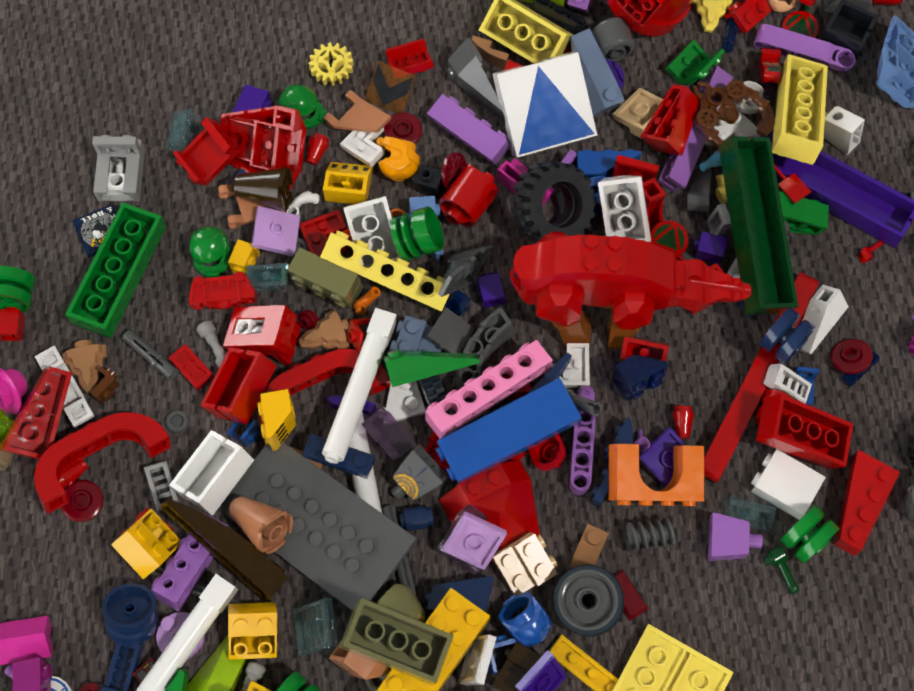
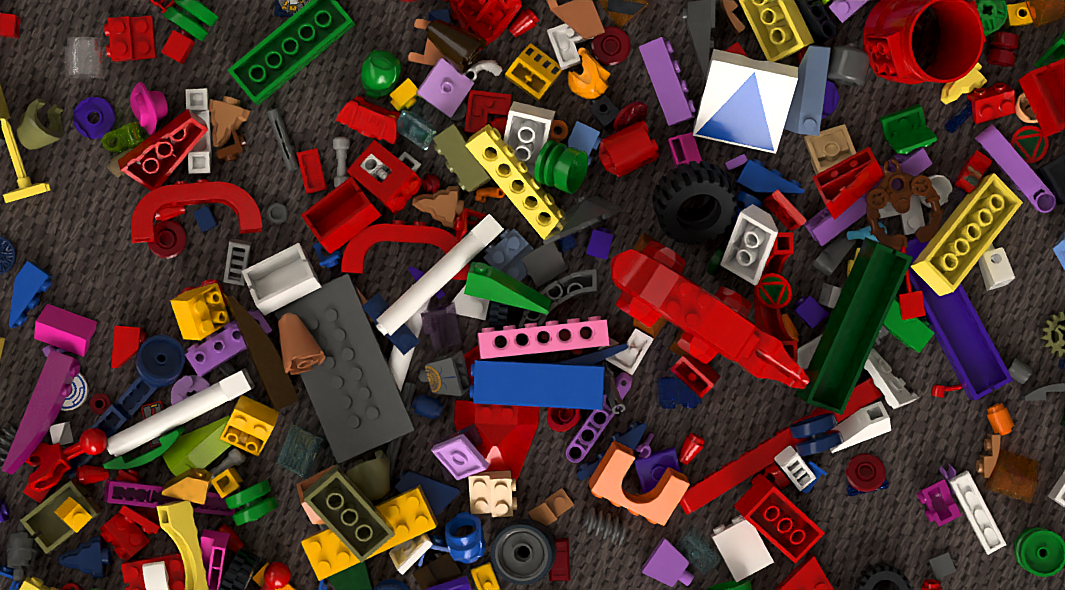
camera: 30 degrees right, 20 degrees up
(88, 620) = (126, 344): none -> red slope
(111, 460) = (206, 218): none -> dark blue slope
(278, 415) = (356, 267): yellow slope -> none
(821, 268) = (892, 387): none -> white wing

